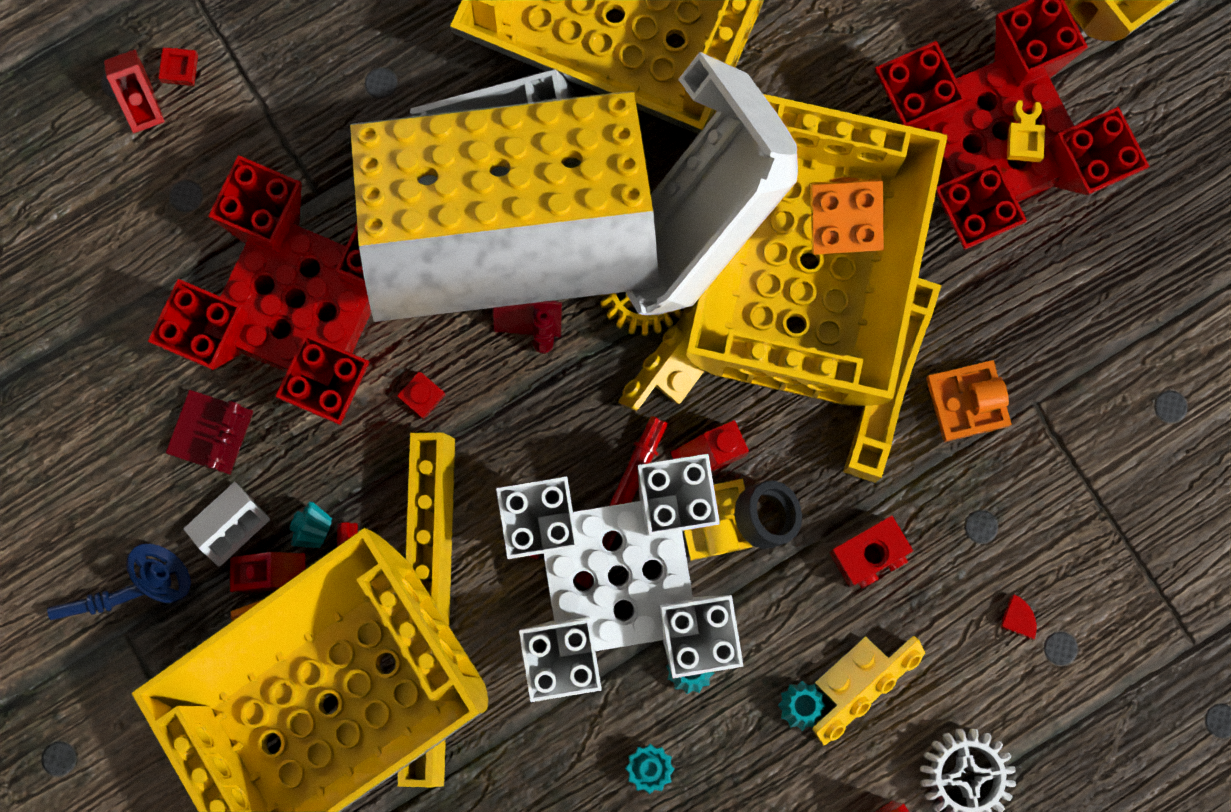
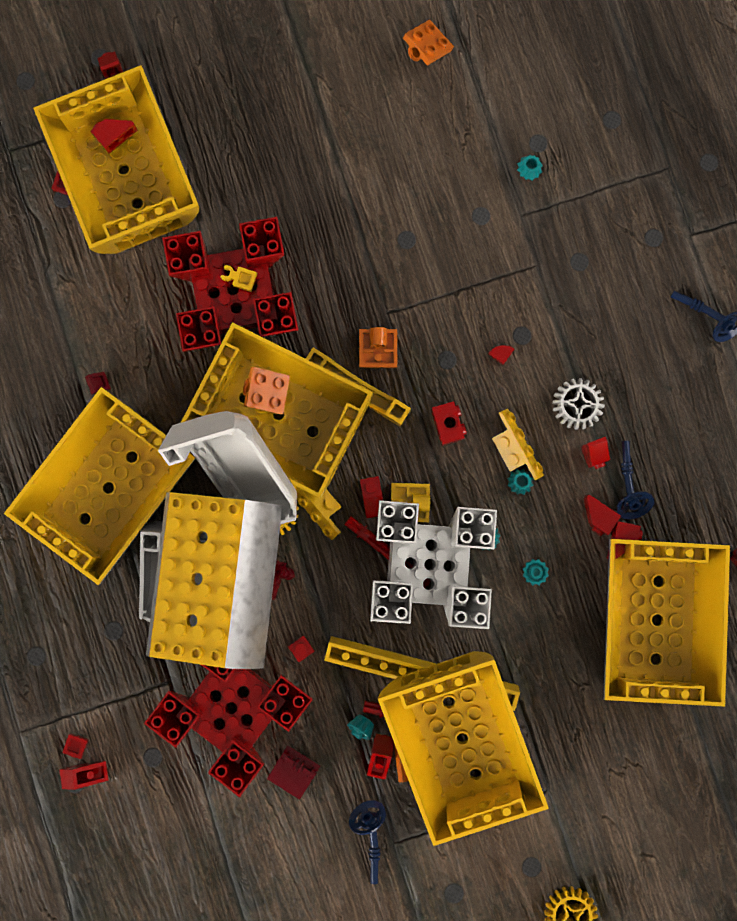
camera: 75 degrees left, 5 degrees up
(226, 524) = (348, 773): white brick -> none
(788, 510) = (415, 462): black tyre -> none

